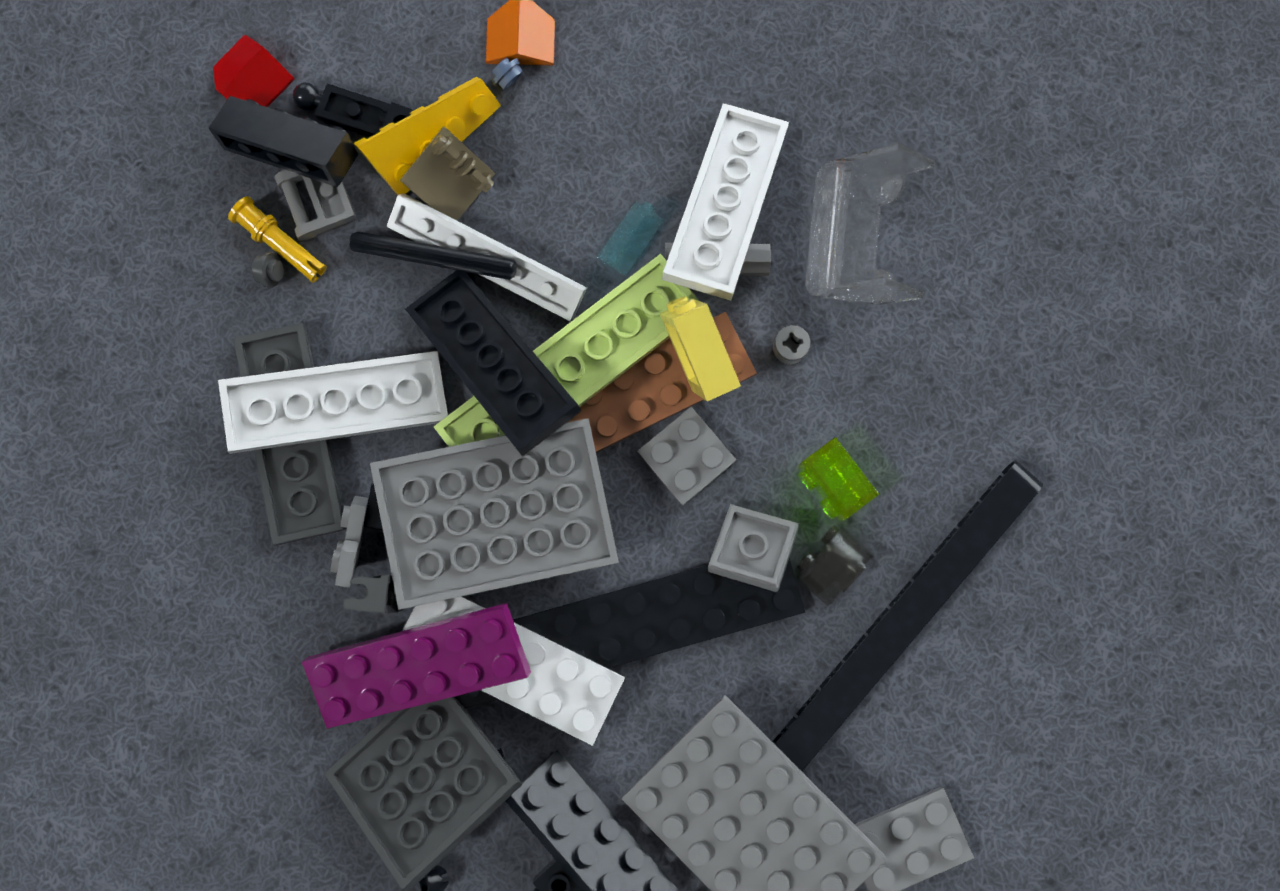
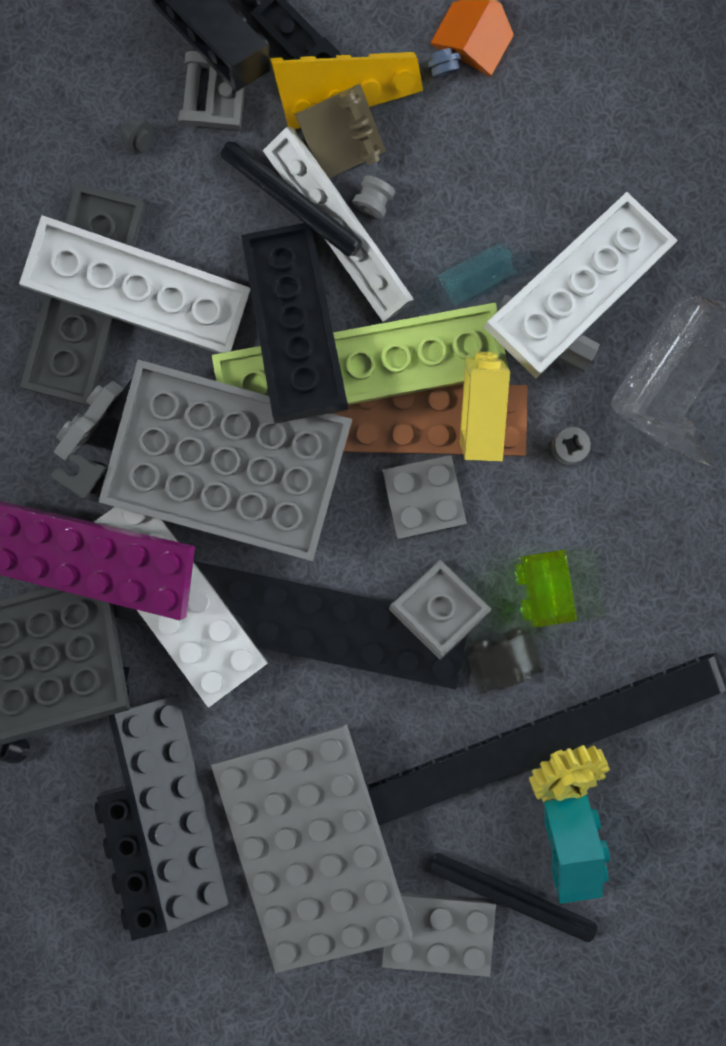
camera: 30 degrees right, 5 degrees up
(265, 230) = (153, 98): yellow pin -> none
(505, 217) = (373, 197): none -> light grey wheel
(945, 634) = (569, 773): none -> light yellow gear
(955, 774) = (513, 897): none -> black axle
(988, 698) = (576, 849): none -> teal brick

